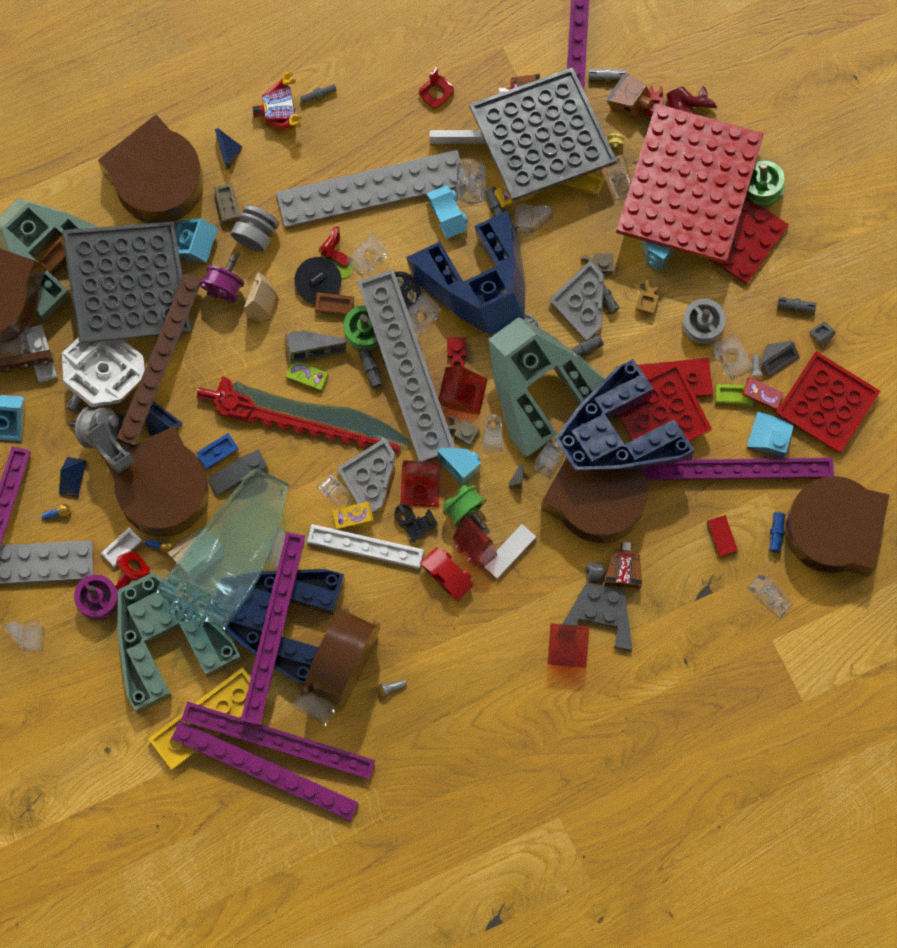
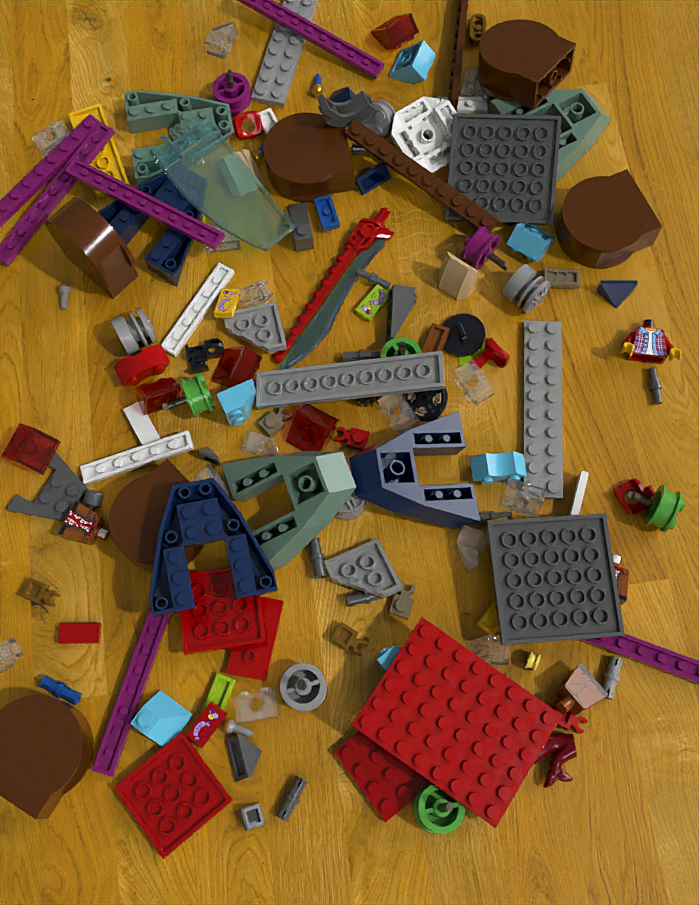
camera: 110 degrees right, 5 degrees down
(200, 766) = (50, 137): none -> clear brick
(281, 382) = (373, 278): none -> dark grey bar
(413, 590) = (134, 330): none -> light grey wheel
(447, 59) = (661, 507): none -> bright green wheel
(542, 544) = (136, 457): none -> white tile
(699, 588) = (38, 591): none -> pearl gold plate

